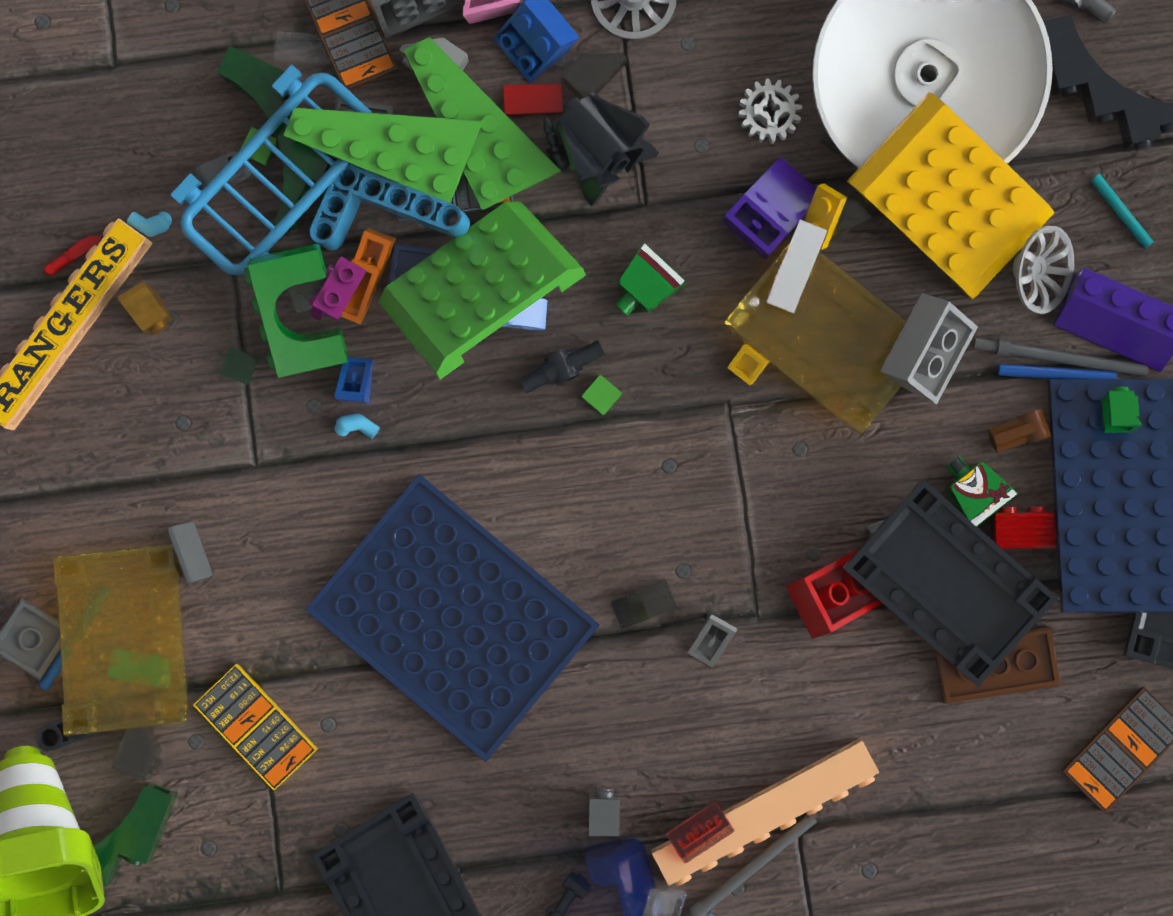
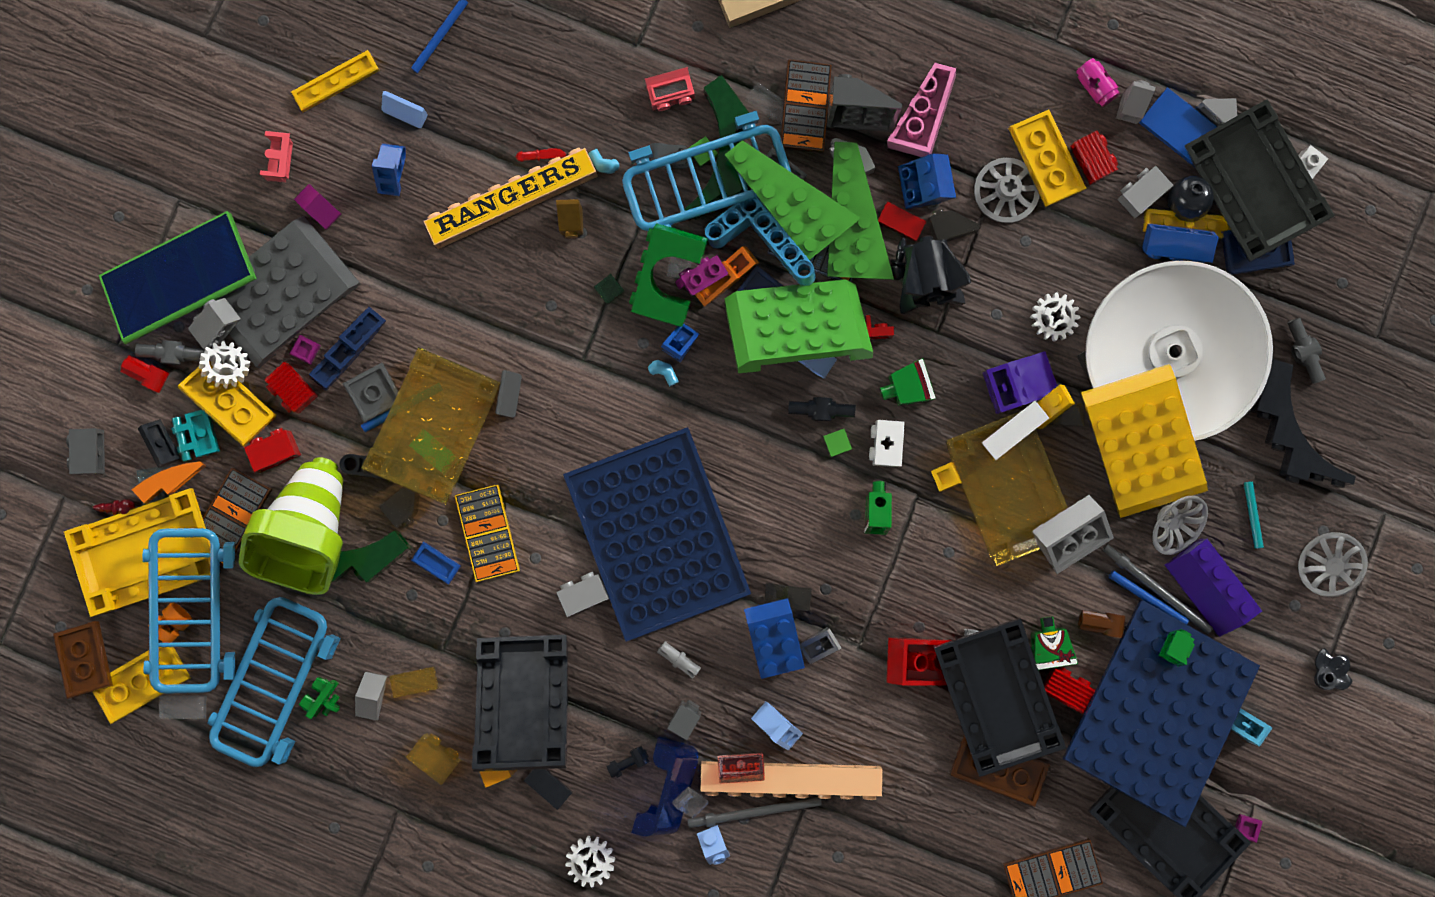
camera: 30 degrees right, 0 degrees up
(180, 95) = (670, 89): none -> coral window
(215, 795) = (436, 563): none -> blue tile
(405, 736) = (582, 594): none -> light grey brick
(559, 747) = (678, 659): none -> light grey pin
(579, 239) = (880, 331): none -> red bracket
(654, 661) = (774, 638): none -> blue brick
(659, 346) = (894, 432): none -> white brick
(697, 455) = (878, 519): none -> green torso
(714, 760) = (776, 726): none -> light blue tile

